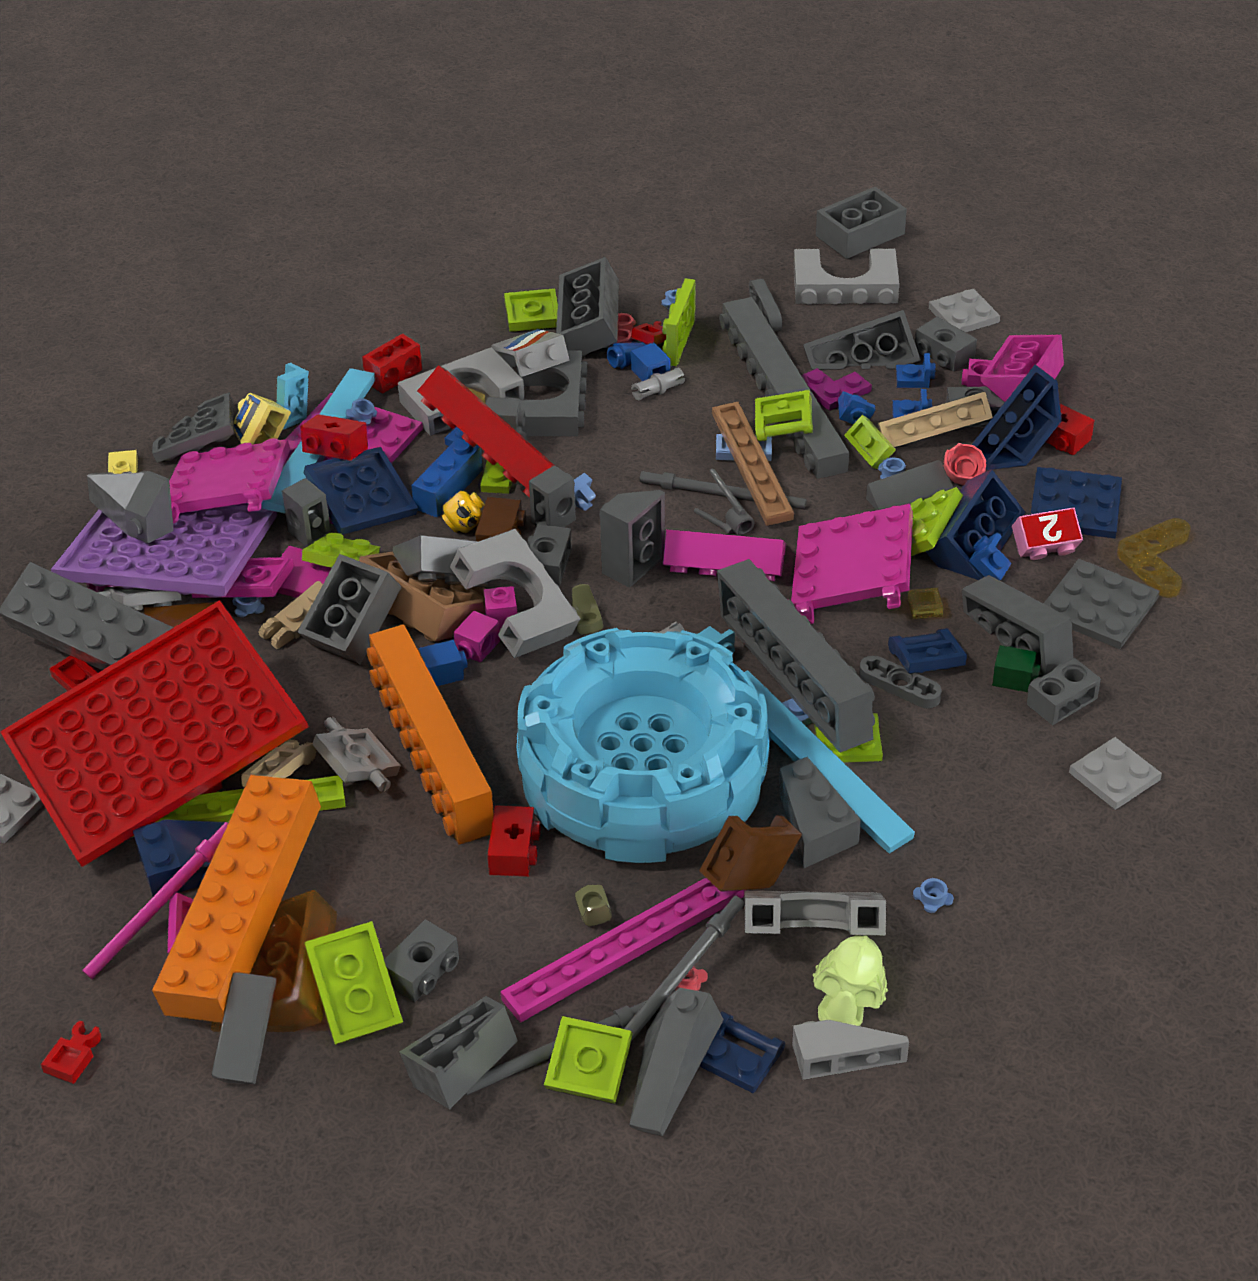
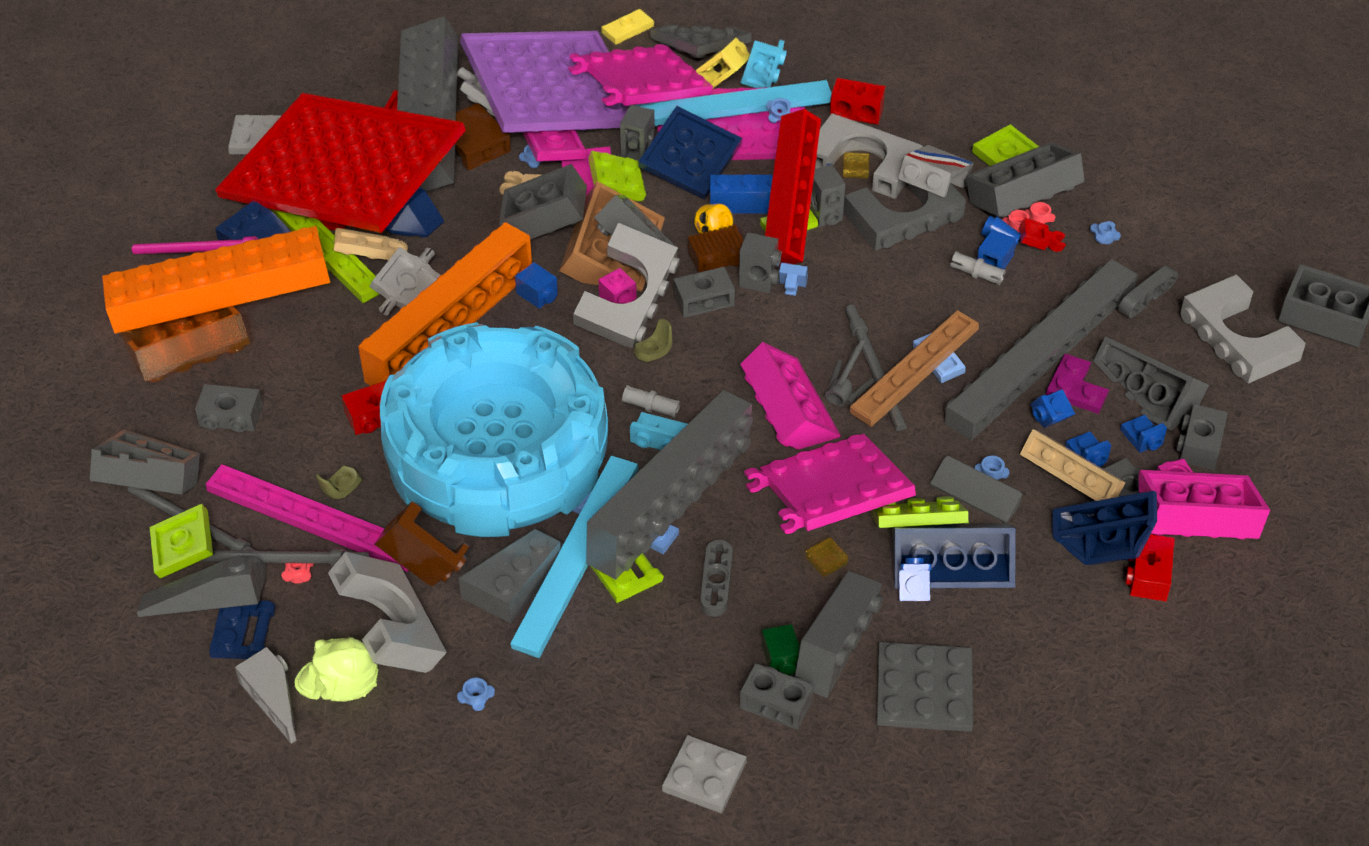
camera: 60 degrees right, 5 degrees up
(71, 1056) = (58, 273): red plate -> none
(134, 502) = (557, 44): dark grey wedge -> none
(243, 1028) = (109, 340): dark grey slope -> none
(334, 437) = (718, 104): red brick -> none
(353, 982) = (177, 378): lime plate -> none
(477, 636) = (574, 287): dark pink brick -> none
(632, 535) = (738, 322): dark grey slope -> none
(680, 321) = (1058, 243): lime plate -> none
(783, 408) = (986, 352): lime plate -> none
(869, 442) = (1013, 437): lime plate -> none
(928, 651) = (757, 584): dark blue plate -> none
(964, 463) = (1032, 508): coral hair -> none
(965, 310) = (1274, 435): light grey plate -> none
(1047, 533) = (980, 608): brick -> none
(1092, 495) = (1057, 620): dark blue plate -> none
(1147, 553) = (1018, 697): clear yellow beam -> none

